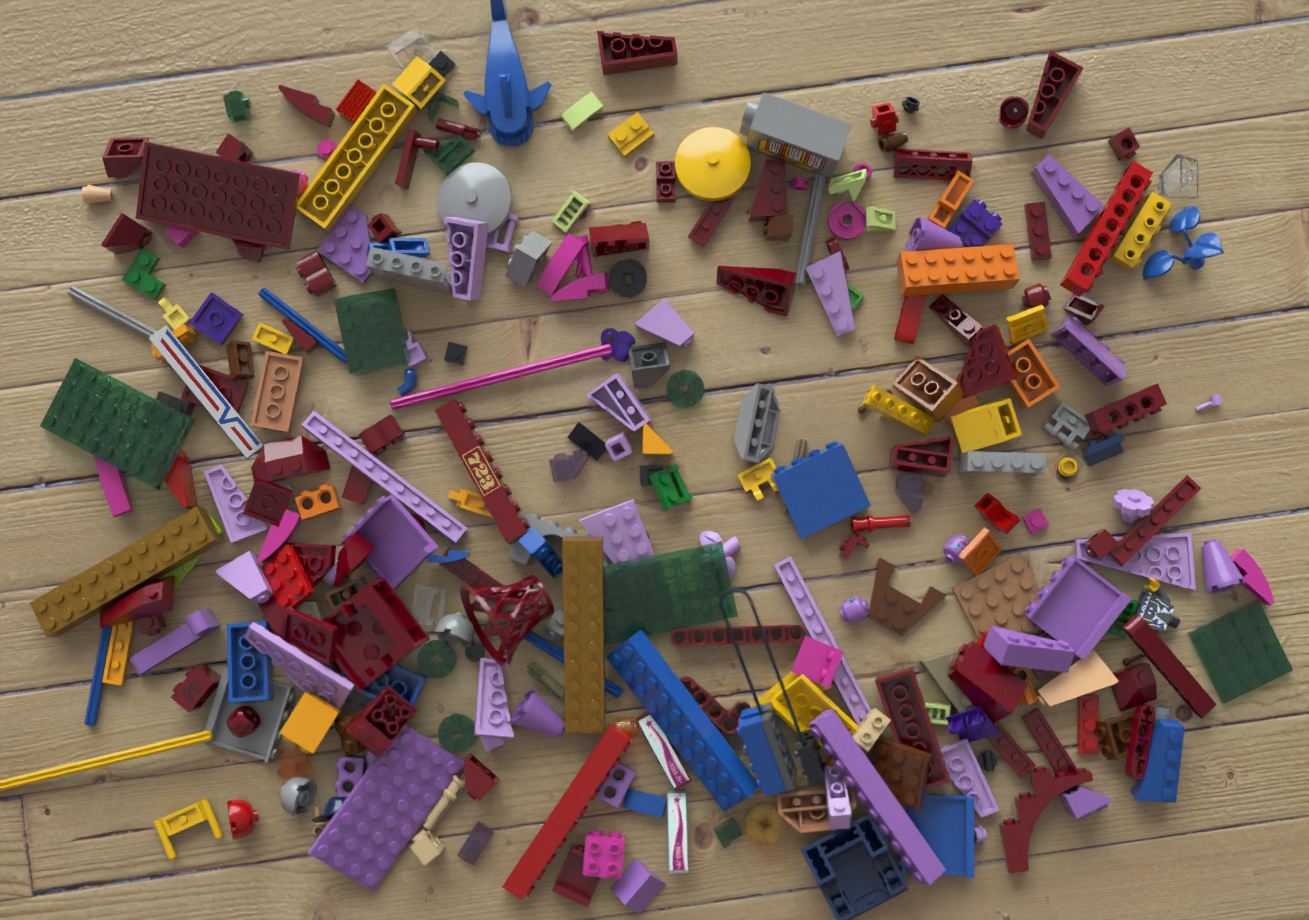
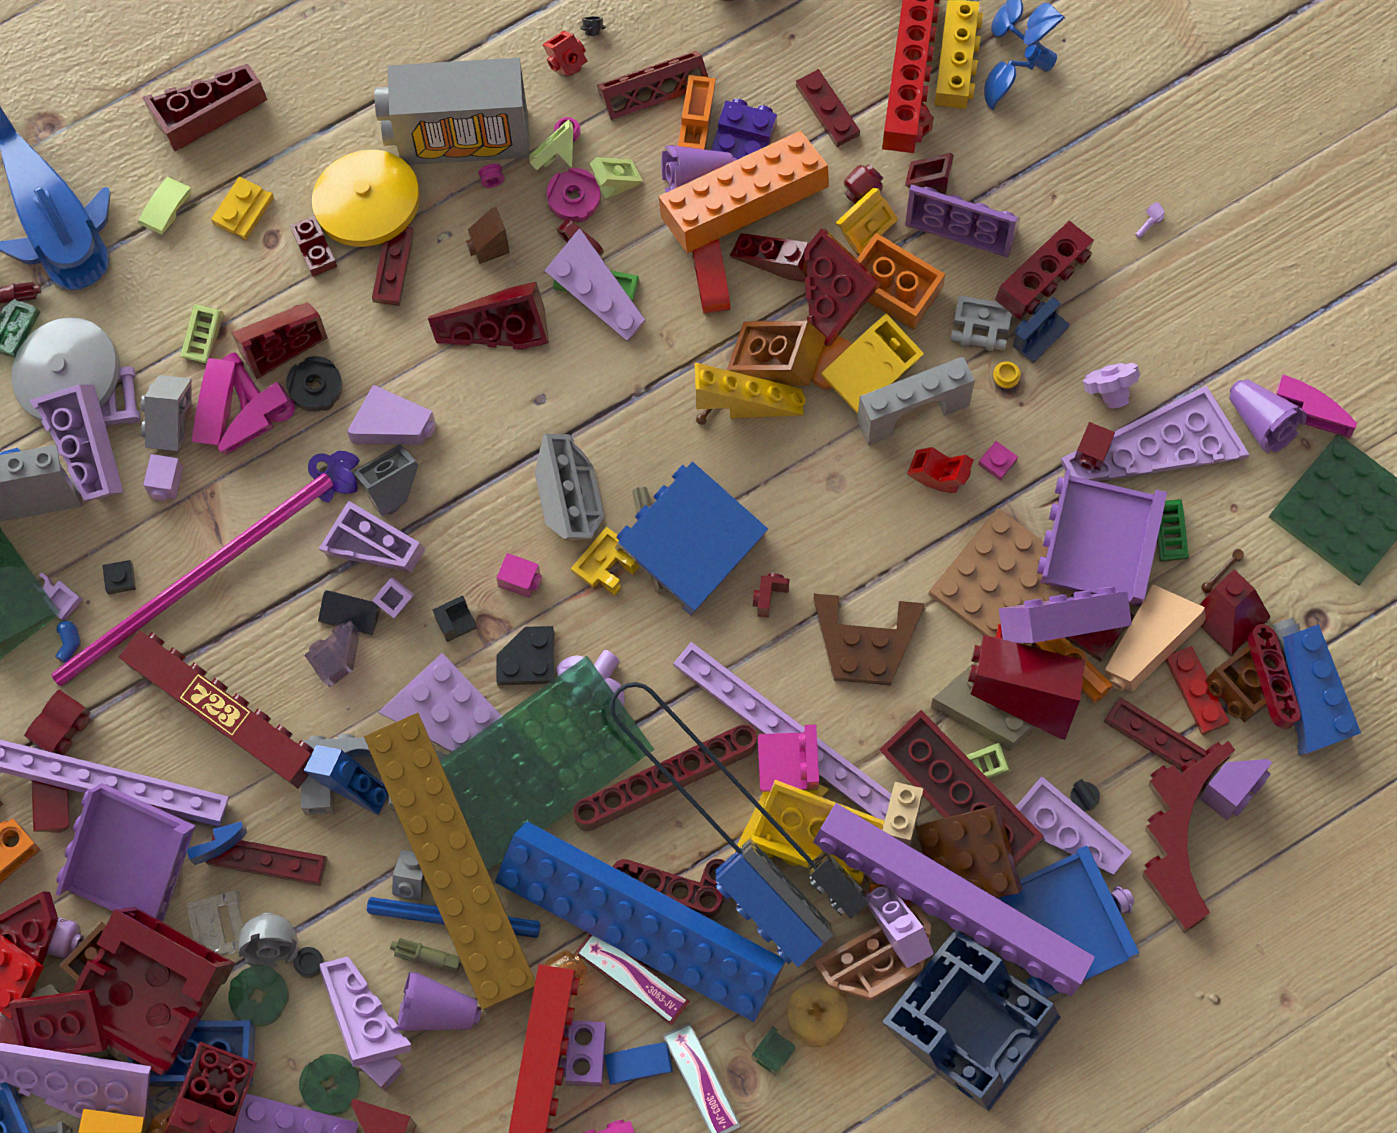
camera: 20 degrees left, 15 degrees down
(351, 556) = (79, 899): dark red slope -> none
(470, 501) = (221, 759): light orange hinge -> none
(508, 300) = (163, 477): none -> lavender brick
(509, 597) = (334, 856): dark red piece -> none
(653, 444) = (441, 574): light orange slope -> none
(666, 490) = (482, 626): green plate -> none
(675, 393) = (440, 480): clear green plate -> none
(686, 519) = (527, 658): none -> black plate
(703, 465) = (519, 575): none -> dark pink brick
(771, 192) = (457, 199): dark red wedge -> none
(809, 229) = (530, 225): light grey axle -> none
(854, 610) = (810, 675): medium lavender head -> none
(871, 523) = (780, 555): red pin -> none
(892, 141) = (588, 77): reddish brown cone -> none
(909, 489) = (810, 489): clear purple slope -> none
(923, 457) = (808, 440): dark red wedge -> none
(954, 547) = (911, 537): medium lavender head -> none
(972, 724) = (1039, 752): dark purple hinge -> none
(980, 552) = (942, 526): orange plate -> none
(1011, 751) = (1105, 767): dark red plate -> none
(1066, 195) = (842, 48): medium lavender wedge -> none
(1152, 523) = (1150, 390): dark red plate -> none
(1156, 608) = (1207, 504): torso -> none
(1169, 666) = (1261, 559): dark red beam -> none

